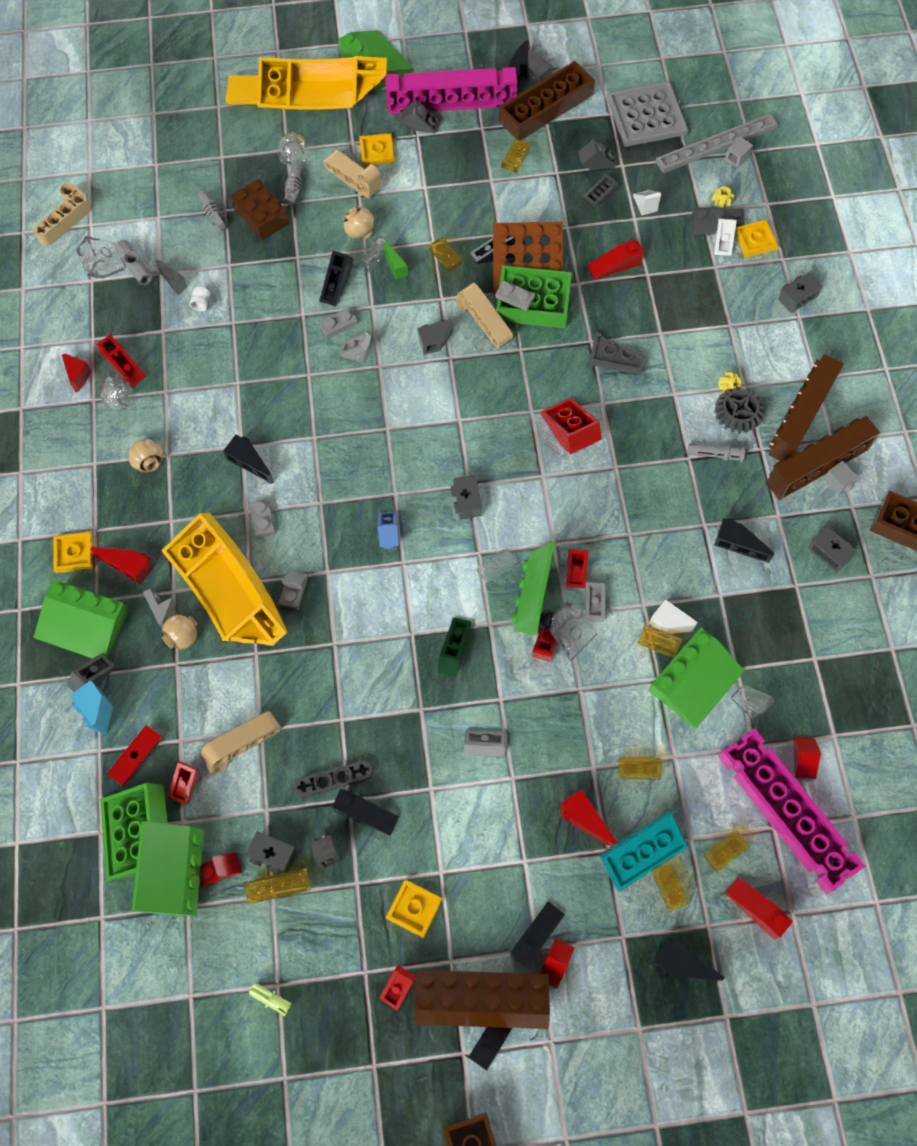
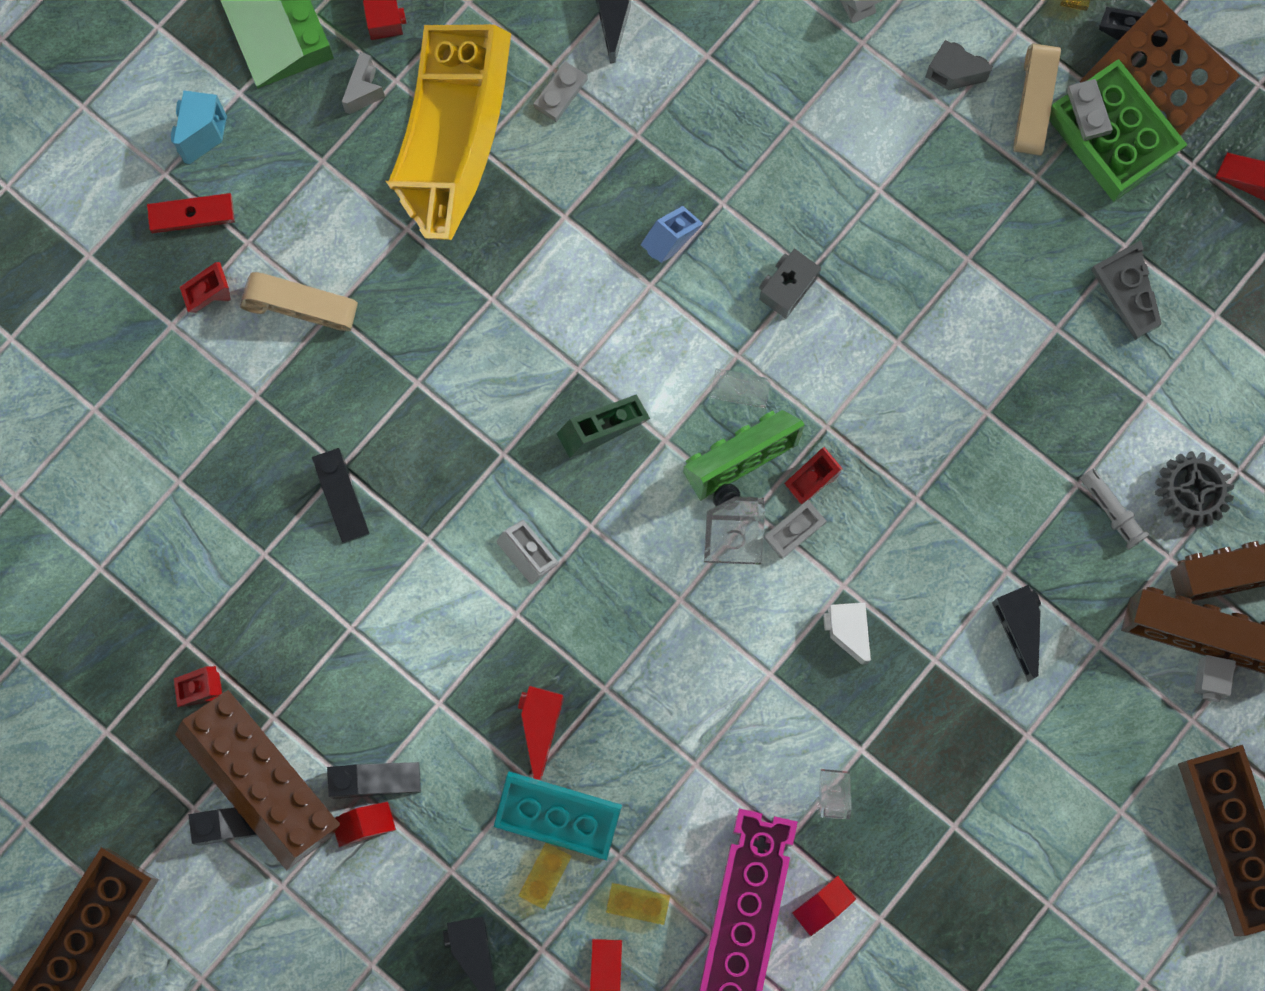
camera: 45 degrees right, 10 degrees up
(94, 670) = (231, 86): flat silver slope -> none
(122, 825) = (118, 289): bright green slope -> none
(168, 869) = (105, 356): bright green slope -> none
(179, 631) = (356, 130): tan plant -> none
(219, 869) = (155, 405): red slope -> none
(262, 844) = (227, 452): dark grey brick -> none
(270, 999) = (78, 573): yellowish green axle -> none
(277, 886) = (190, 477): clear yellow plate -> none
(293, 589) = (511, 200): light grey slope -> none
(324, 851) = (264, 492): flat silver slope -> none
(332, 775) = (349, 429): dark grey beam -> none
(414, 908) = (290, 633): yellow tile -> none
(544, 645) = (690, 518): red slope -> none
(572, 425) = (990, 318): red slope -> none
(639, 768) = (646, 737): clear yellow plate -> none
(659, 641) = (813, 638): clear yellow plate -> none
(697, 678) = (807, 714): bright green slope -> none
(729, 381) = (1220, 448): light yellow gear -> none
(823, 547) = (1102, 753): dark grey brick -> none

